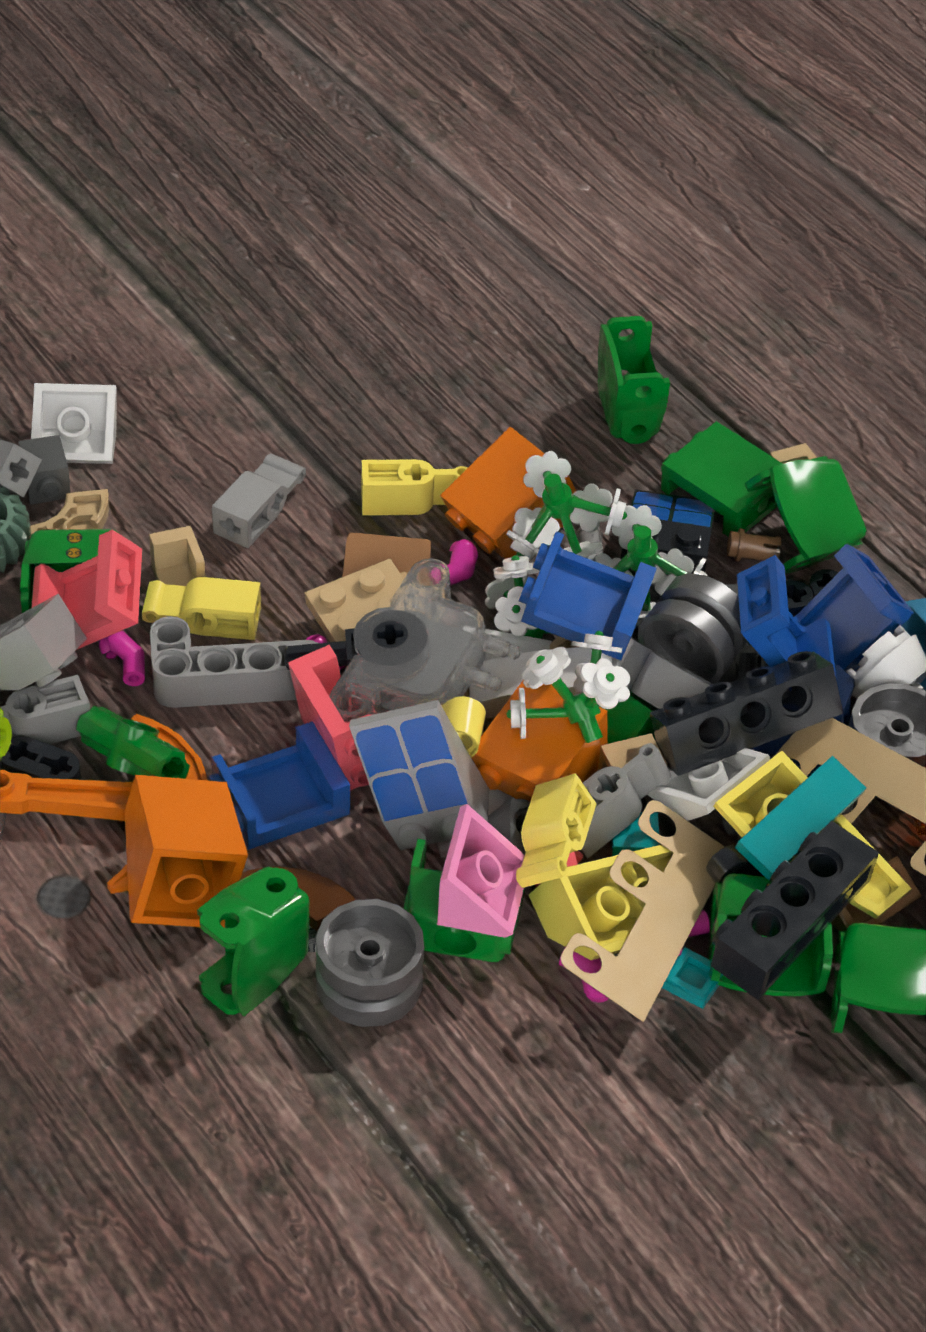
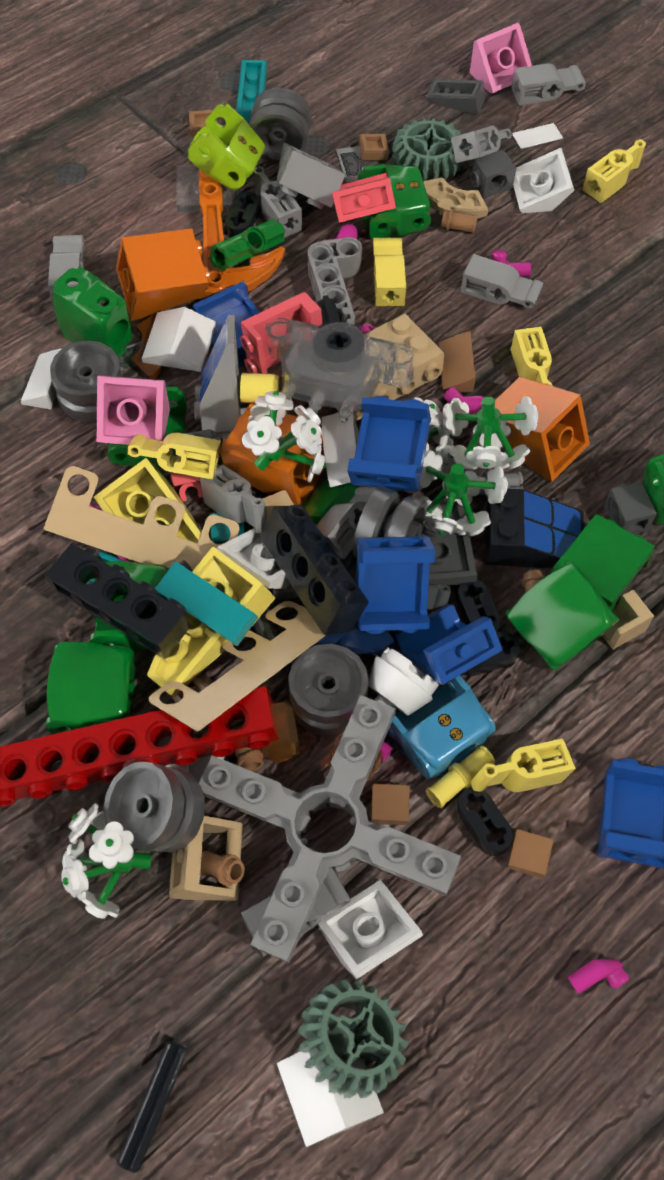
camera: 85 degrees right, 15 degrees up
(77, 350) = (612, 171): none -> light yellow piece
(107, 994) = (66, 255): none -> light grey piece
(126, 517) = (459, 221): none -> medium nougat pin
(176, 556) = (429, 255): tan panel -> none
(213, 491) = (523, 268): none -> dark pink arm
(305, 846) = (179, 339): none -> white slope
(334, 1034) = (40, 388): none -> white slope
(643, 443) = (630, 507): none -> dark grey brick

